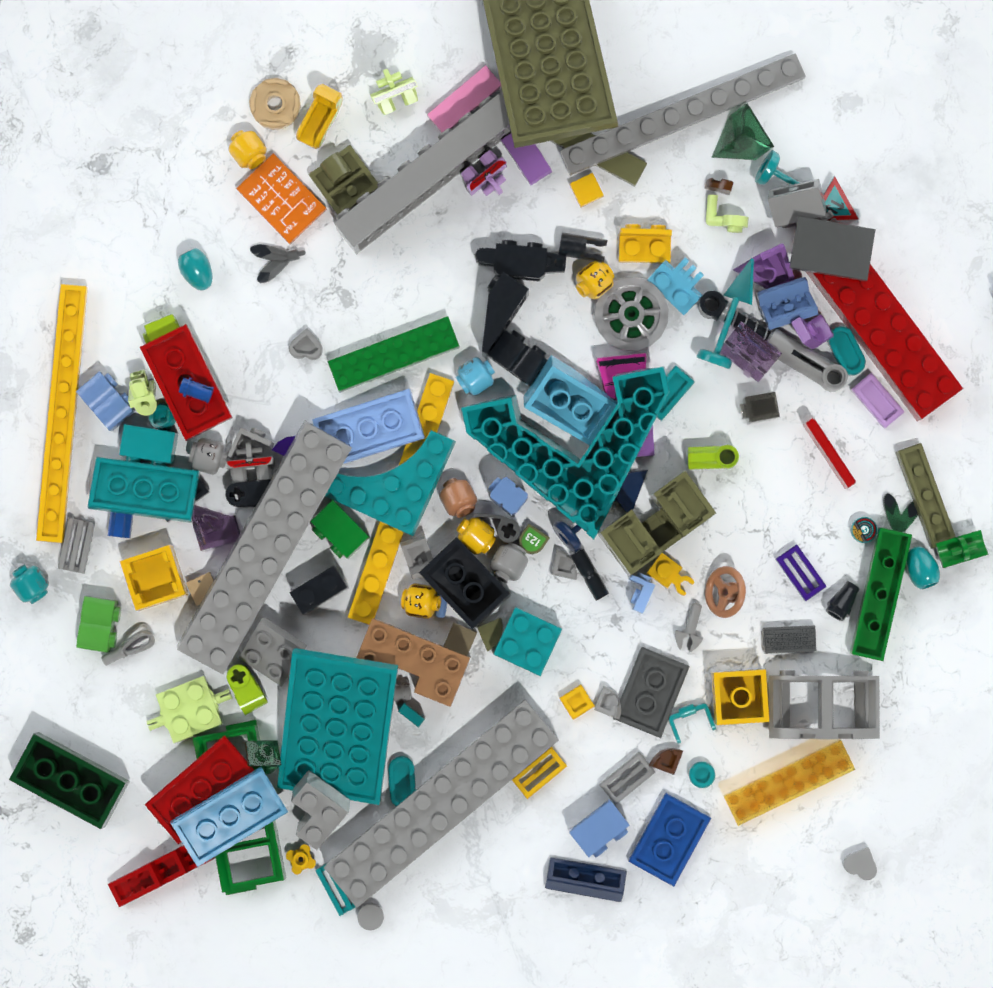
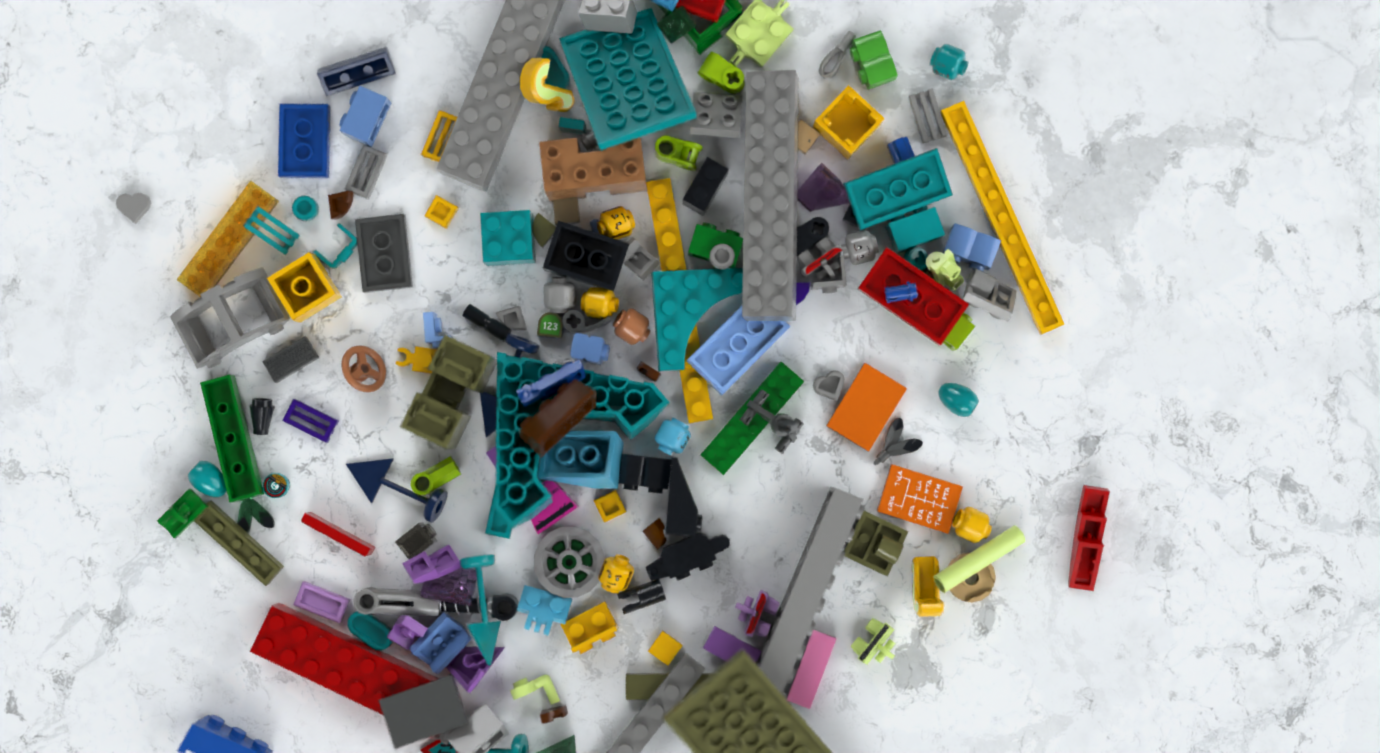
camera: 145 degrees right, 0 degrees up
(114, 346) = (990, 295): none -> light grey plate
(148, 81) = (1088, 538): none -> red slope
(258, 115) = (979, 559): none -> yellowish green piece
(283, 308) = (866, 407): none -> orange tile
(325, 634) = (679, 152): none -> lime piece
(340, 514) = (722, 256): none -> light grey tile
(370, 331) = (780, 424): none -> dark grey axle
(426, 763) = (536, 91): none -> yellow animal
(465, 449) = (648, 371): none -> reddish brown tile
(539, 297) = (655, 533): none -> reddish brown tile
(560, 480) = (550, 383): none -> blue hinge
(567, 345) = (610, 506): none -> yellow tile
(568, 446) = (558, 416): none -> reddish brown slope
(609, 703) = (413, 224): light grey tile -> none
(690, 628) = (378, 323): light grey bar -> none
(734, 751) = (288, 242): none -> teal tile
(758, 376) = (426, 568): none -> medium lavender slope
(771, 491) = (372, 475): none -> dark blue piece

